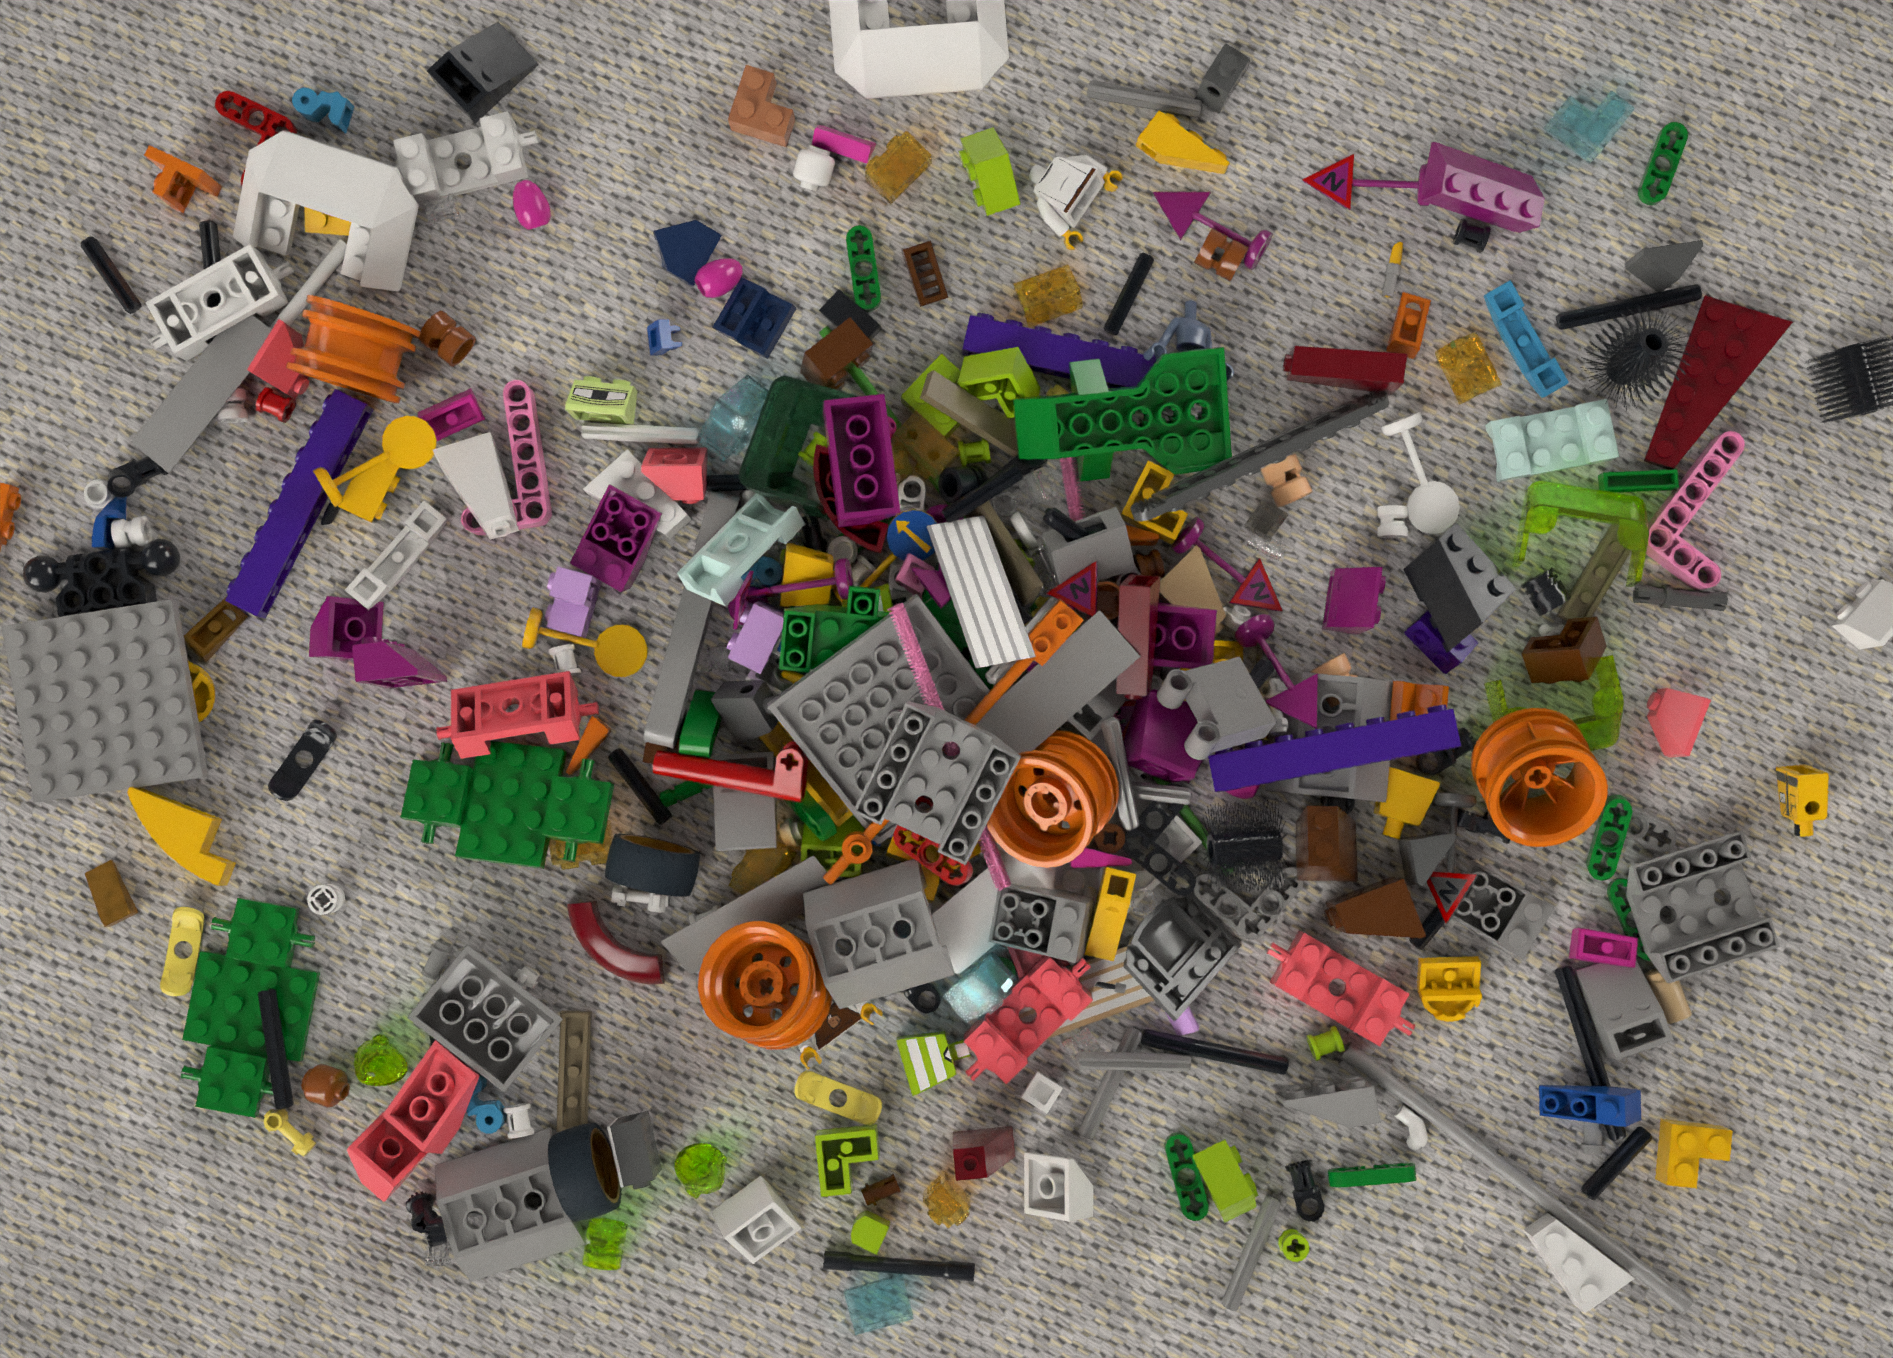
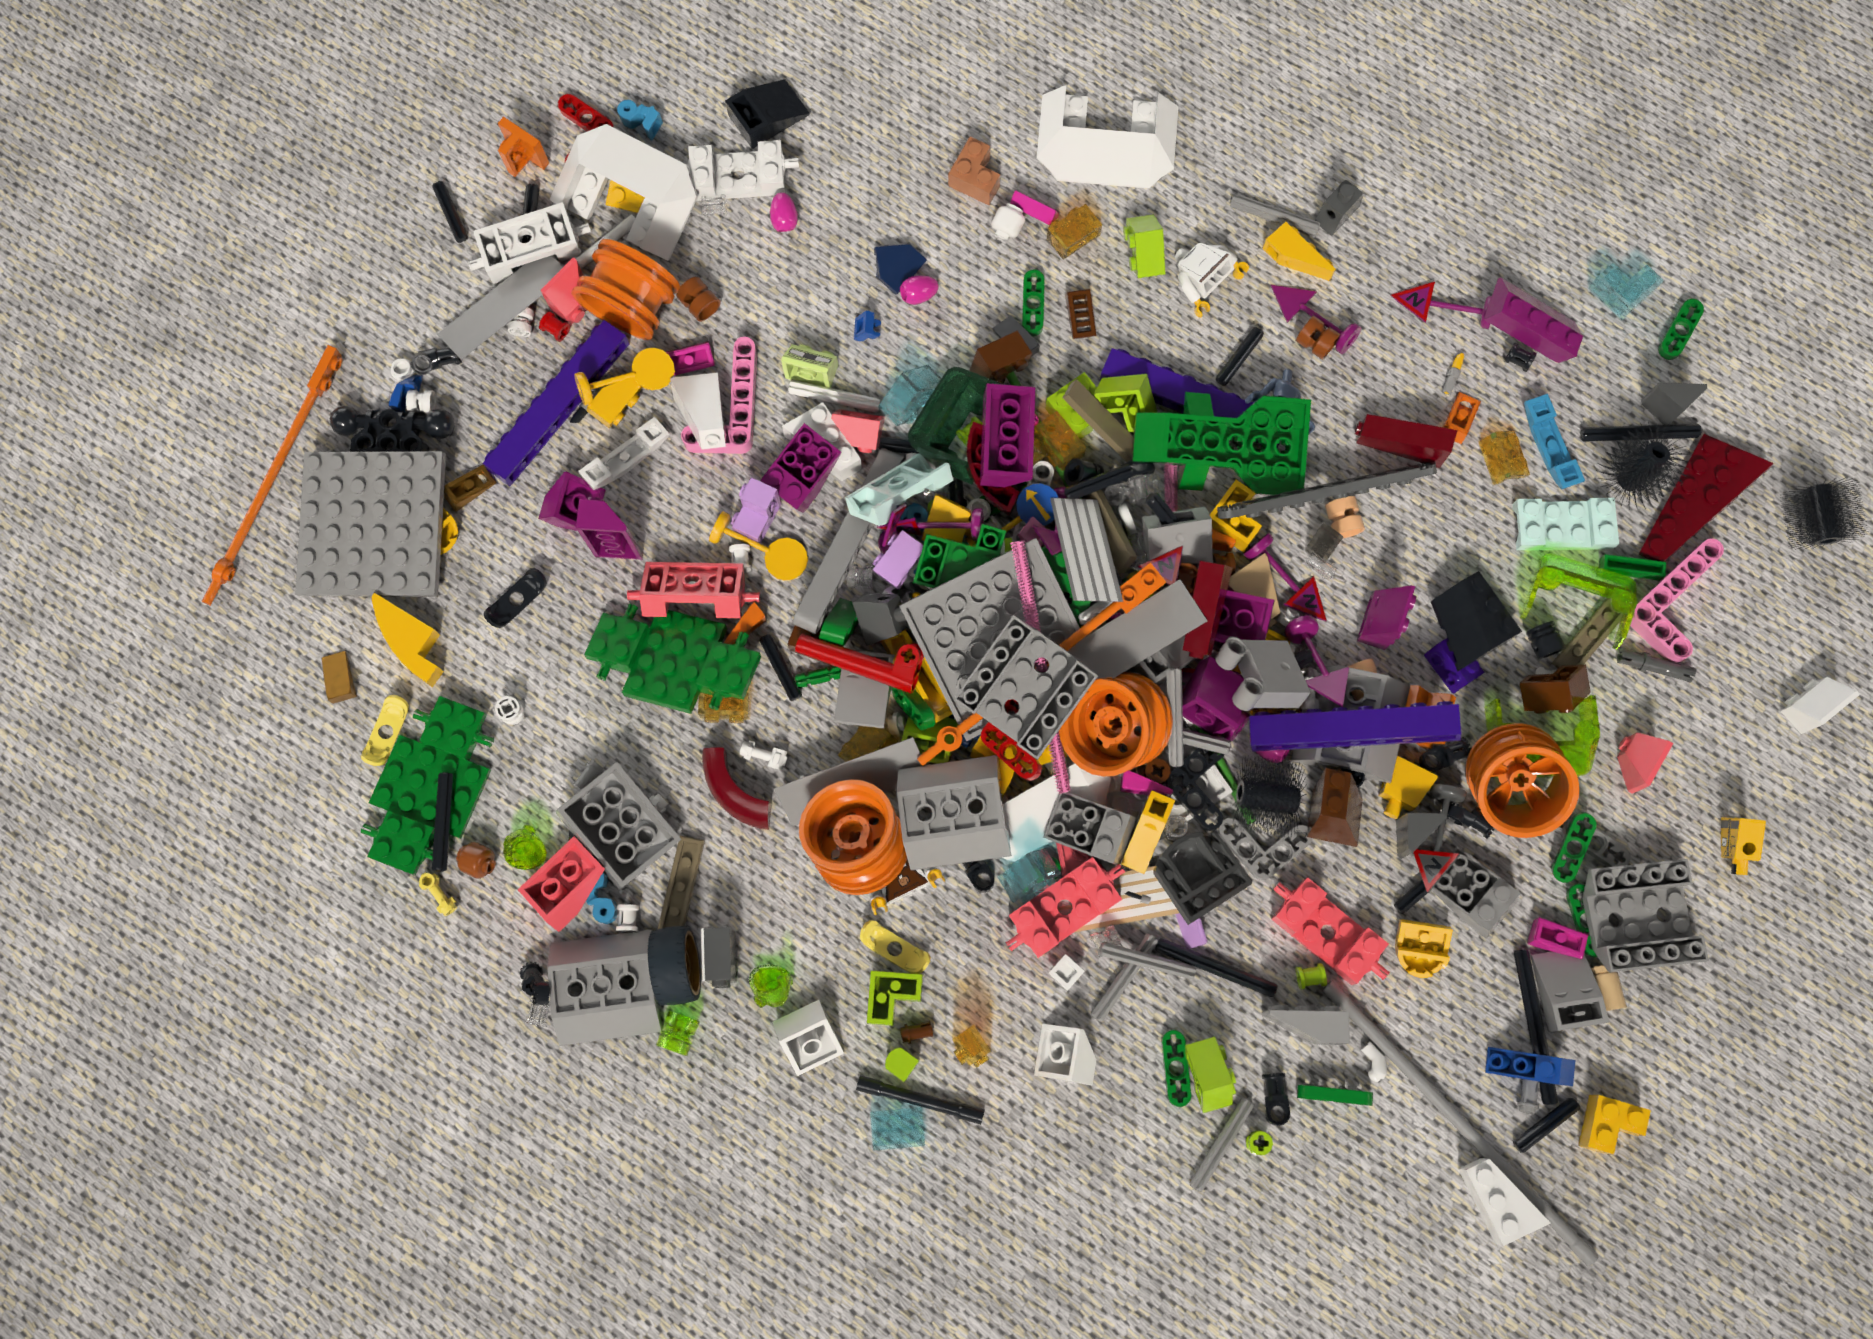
camera: 10 degrees right, 10 degrees down
(384, 1158) = (513, 927): coral slope -> none
(652, 865) = (779, 725): black wheel -> none
(754, 317) = (940, 325): dark blue slope -> none
(929, 1058) = (977, 928): torso -> none
(974, 452) = (1097, 454): lime bush -> none
(982, 1151) = (1009, 1008): dark red slope -> none
(1048, 295) = (1176, 346): clear yellow bracket -> none
(1376, 910) = (1370, 871): reddish brown slope -> none
(1392, 521) = (1426, 564): white wheel -> none
(1432, 504) = (1459, 557): white piece -> none

